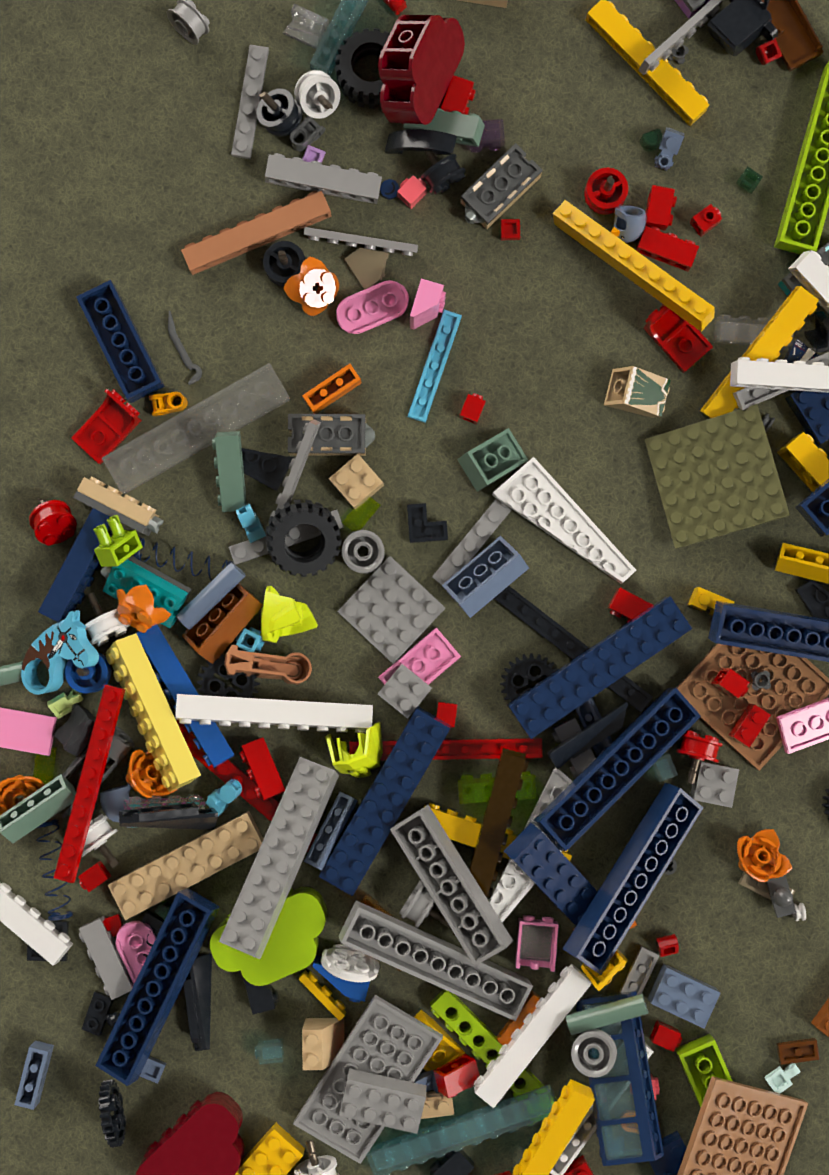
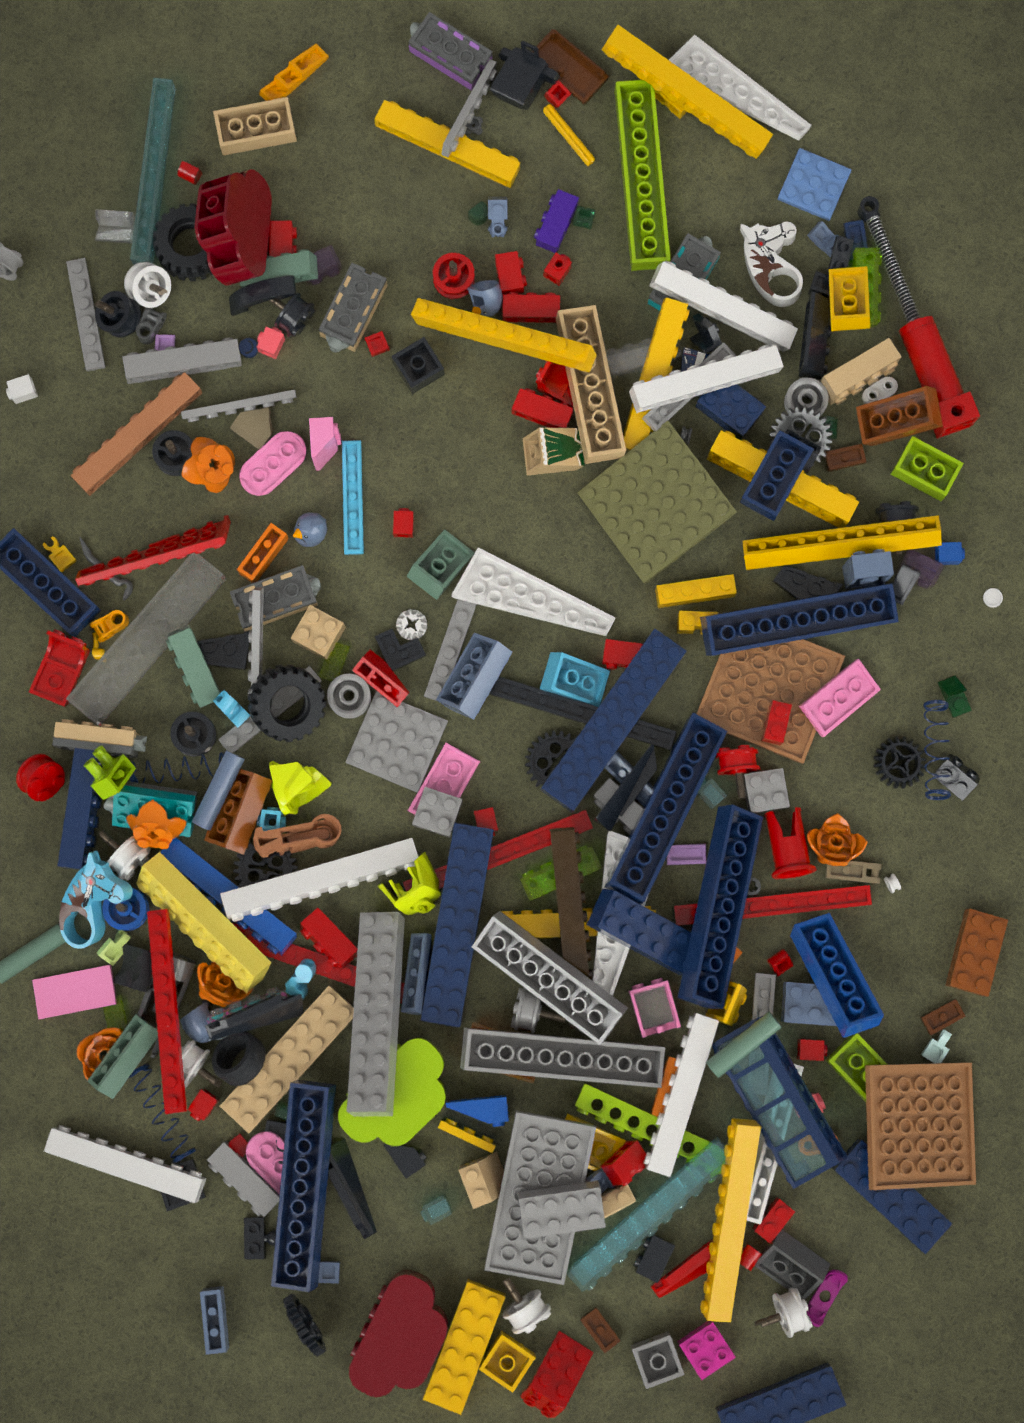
camera: 20 degrees left, 5 degrees down
(145, 322) = (60, 556): none -> yellow plate
(146, 423) = (96, 651): none -> yellow hand
(147, 860) = (250, 1064): none -> black tyre
(165, 151) = (21, 389): none -> white brick
(207, 533) = (193, 734): none -> black wheel
(238, 352) = (160, 552): none -> red wing
(349, 964) = (481, 1091): white tile -> none
(385, 382) = (310, 528): none -> sand blue piece
(399, 546) = (381, 677): none -> red slope
(440, 513) = (409, 633): none -> white gear
(541, 264) = (418, 365): none -> black brick
(576, 613) = (574, 678): none -> medium azure slope
(594, 1066) = (732, 1078): light grey wheel -> none
(622, 815) = (687, 854): none -> lavender tile
(641, 348) = (542, 409): none -> red brick
(695, 350) = (593, 391): none -> tan brick
(695, 894) = (790, 903): none -> red plate
(715, 851) = (789, 852): none -> red piece
(716, 982) = (836, 975): none -> blue brick
(720, 573) = (695, 591): none -> yellow brick
(722, 173) = (556, 221): none -> dark purple brick
(731, 683) = (743, 689): red brick -> none
(764, 95) = (569, 135): none -> yellow axle
(765, 680) = (777, 679): dark grey plate -> none
(781, 896) = (868, 873): dark grey tile -> none

